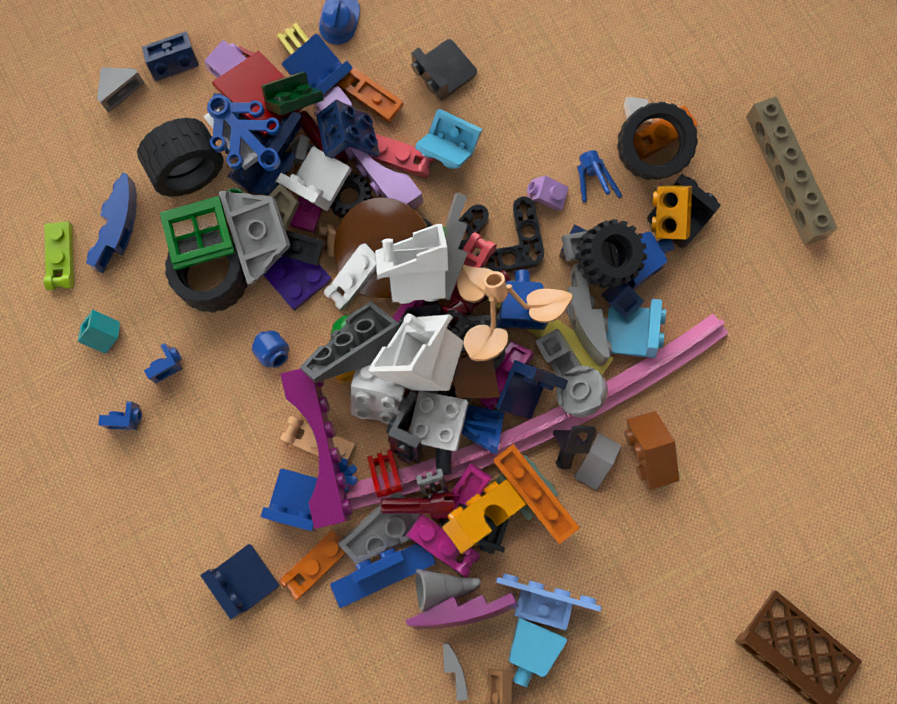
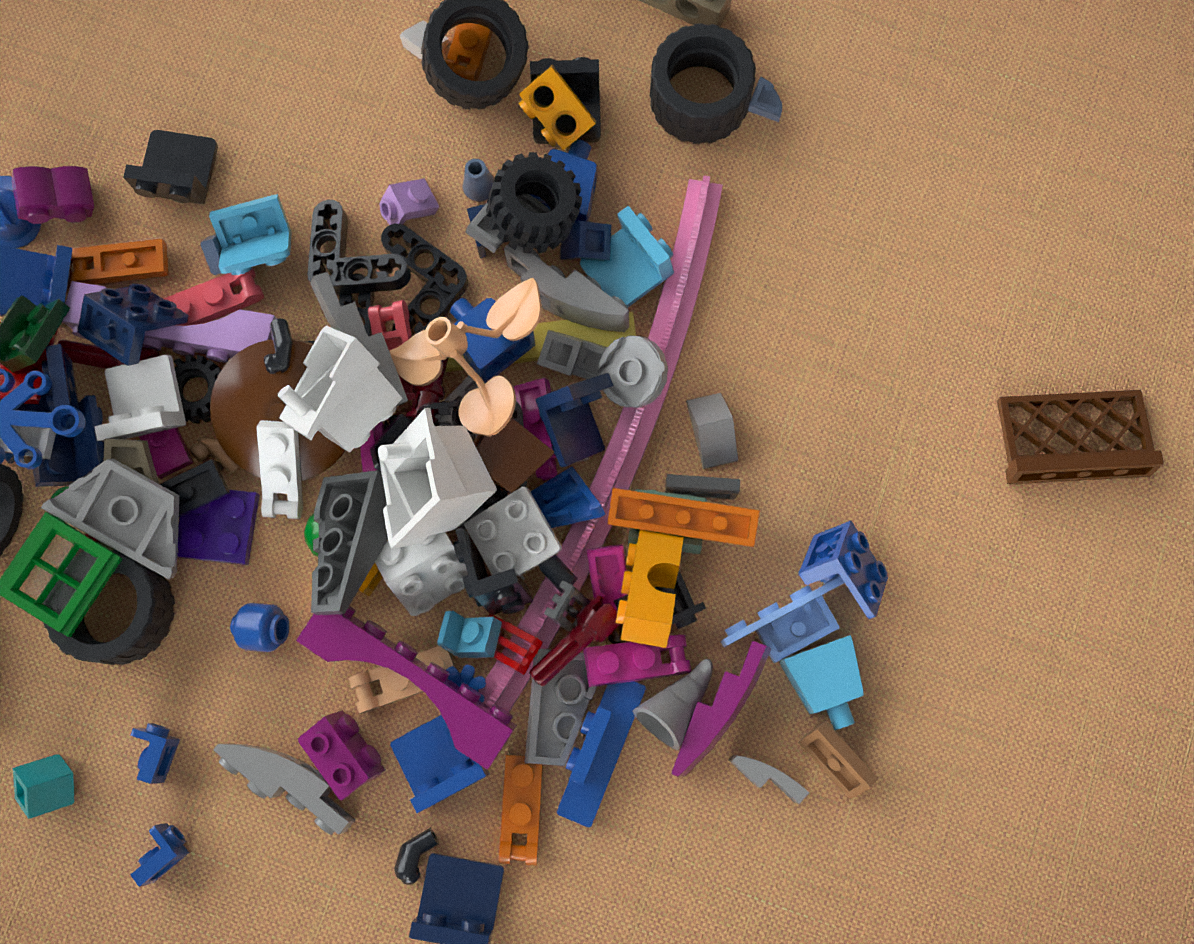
camera: 45 degrees left, 0 degrees up
(212, 429) = (275, 772): none -> light grey slope
(239, 534) = (409, 854): none -> black arm
(252, 451) = (341, 753): none -> magenta bracket
(299, 148) = (91, 383): light grey tile -> none
(369, 30) = (52, 193): none -> magenta brick
(369, 451) = (469, 636): none -> medium azure bracket
(410, 214) = (283, 347): none -> black arm
(422, 130) = (212, 253): none -> sand blue tile
(480, 196) = (343, 267): none -> black beam
(563, 486) = (703, 486): none -> dark grey tile
(572, 443) = (671, 433): black bracket -> none
(592, 166) = (429, 134): blue plant -> none
(594, 213) = (477, 180): none -> sand blue cone
(605, 598) = (847, 553): none -> blue bracket
(653, 450) = (759, 364): dark orange brick -> none
(783, 243) = (703, 47): none -> black tyre
(798, 307) = (766, 101): none -> sand blue tile

